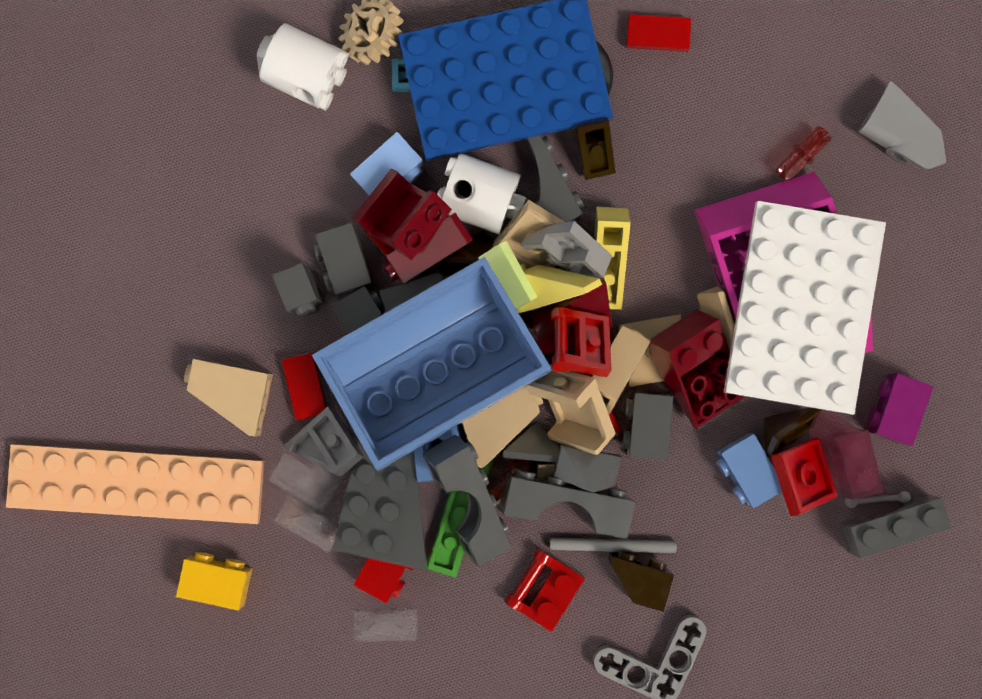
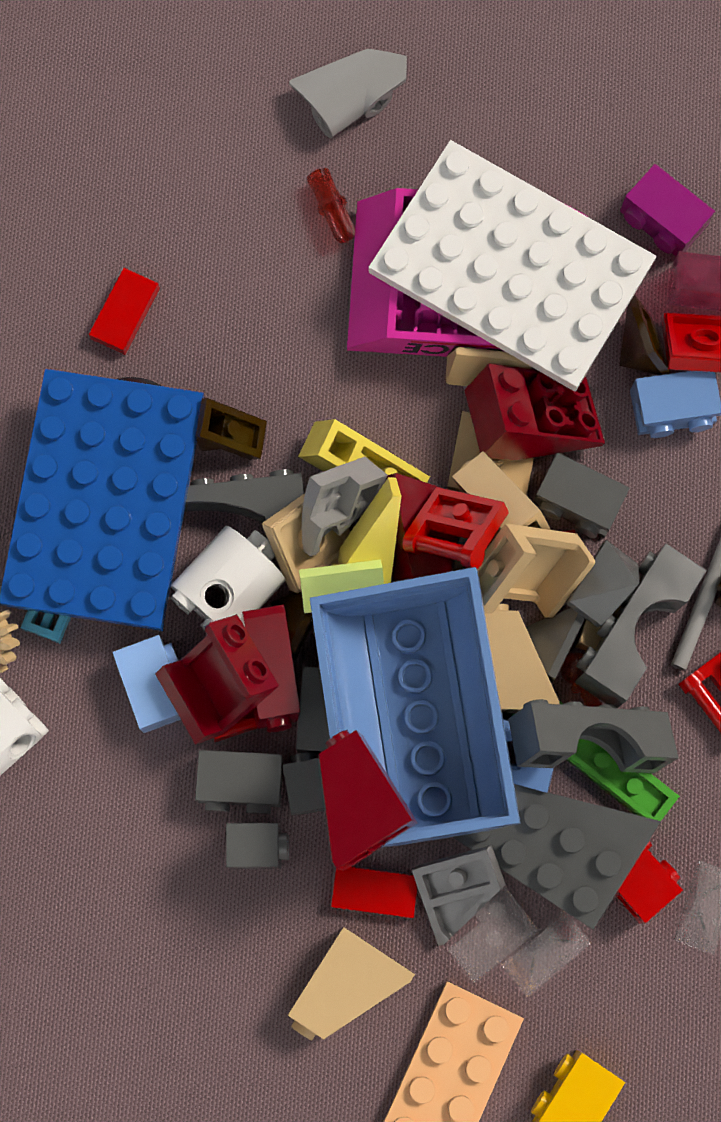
camera: 70 degrees left, 10 degrees down
(349, 349) = (359, 800): none -> dark red slope

